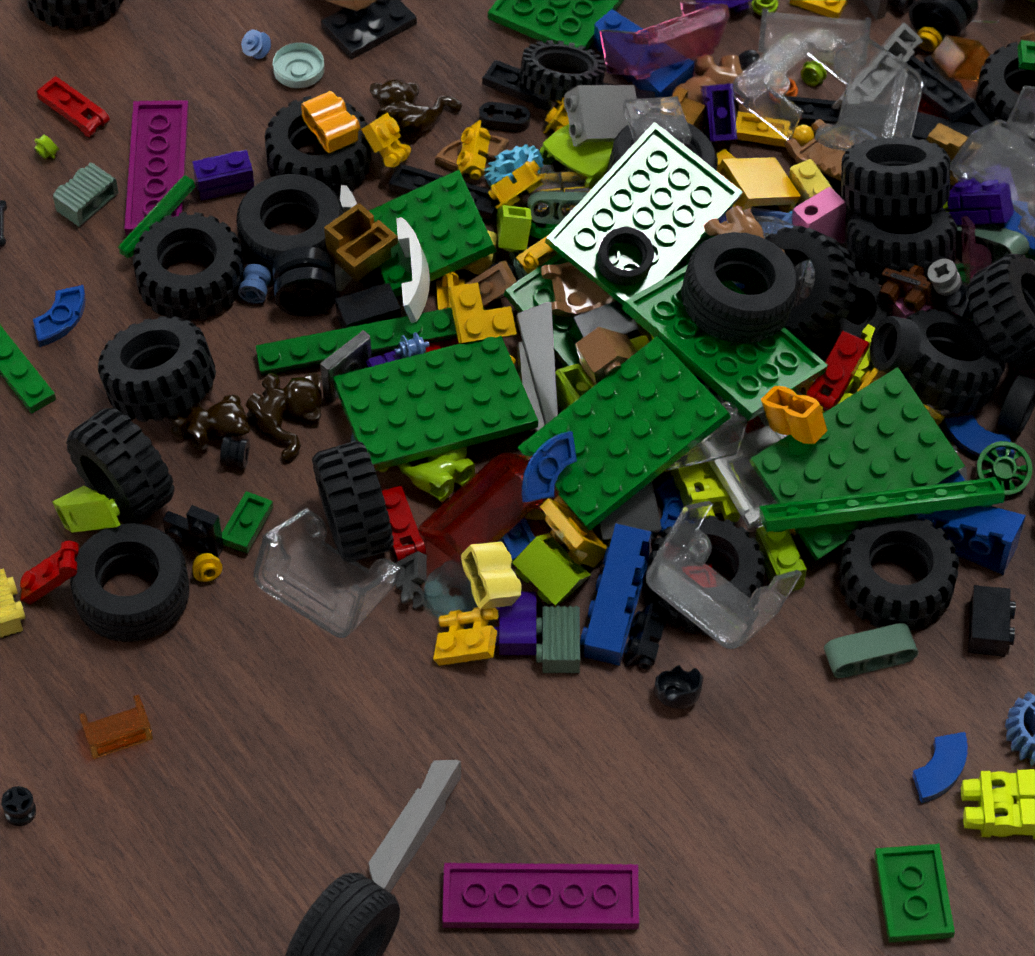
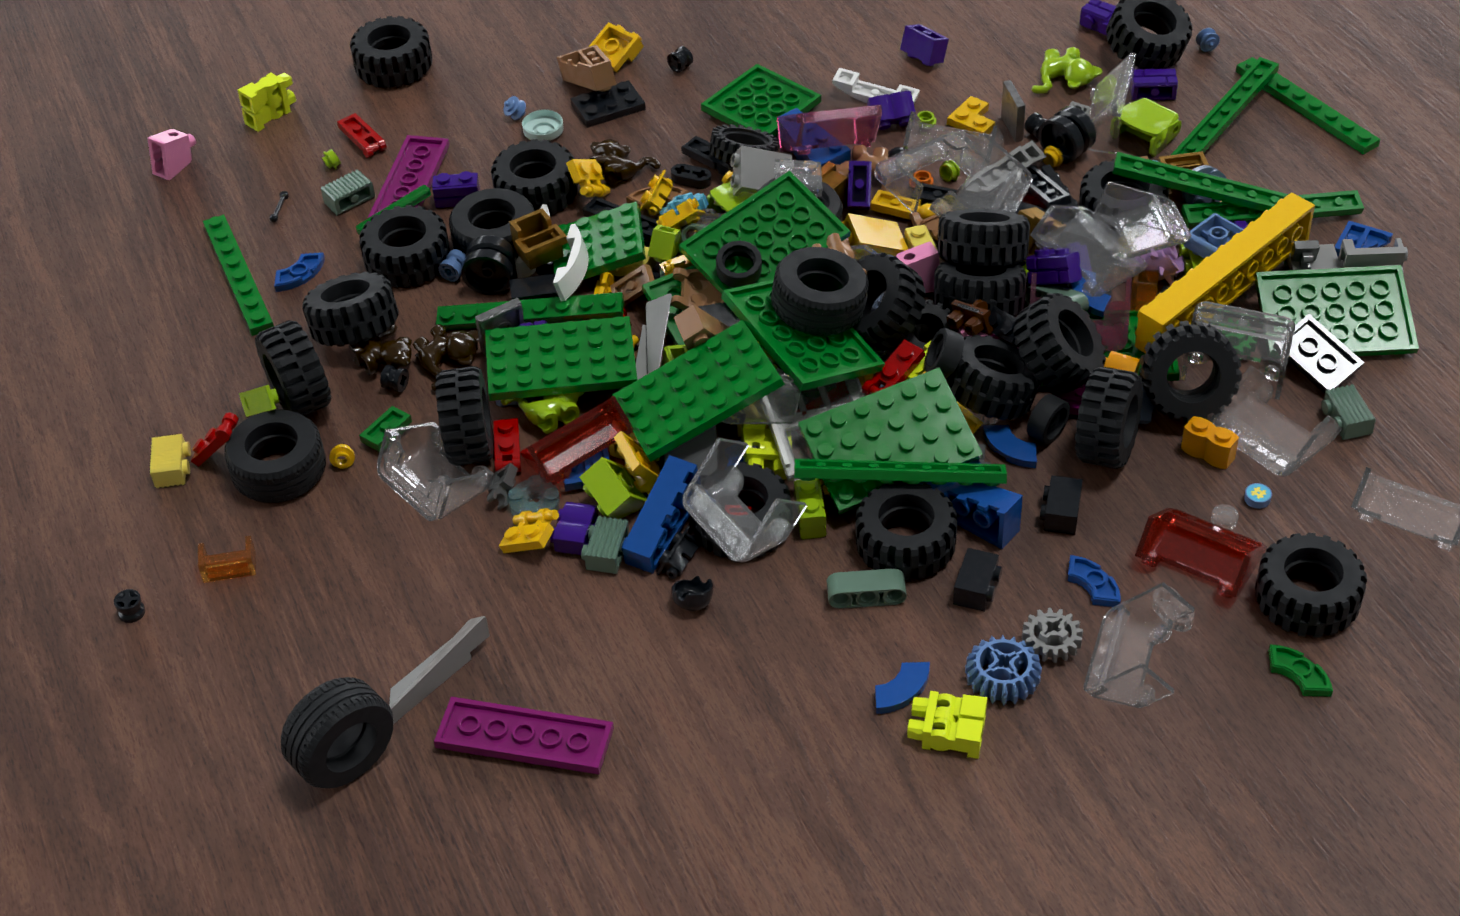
camera: 15 degrees right, 10 degrees down
(198, 530) = (341, 426): black plate -> none
(330, 121) = (543, 154): light orange brick -> none
(411, 347) = (555, 317): medium blue wheel -> none
(473, 321) = (609, 303): yellow plate -> none
(491, 575) = (558, 483): light yellow brick -> none
(546, 466) = (624, 404): blue tile -> none
(794, 415) = (838, 389): light orange brick -> none
(914, 893) = (845, 781): green plate -> none
(941, 282) = (1001, 309): light grey wheel -> none
(961, 57) = (1069, 167): clear orange panel -> none
(1005, 467) = (1024, 467): green wheel -> none

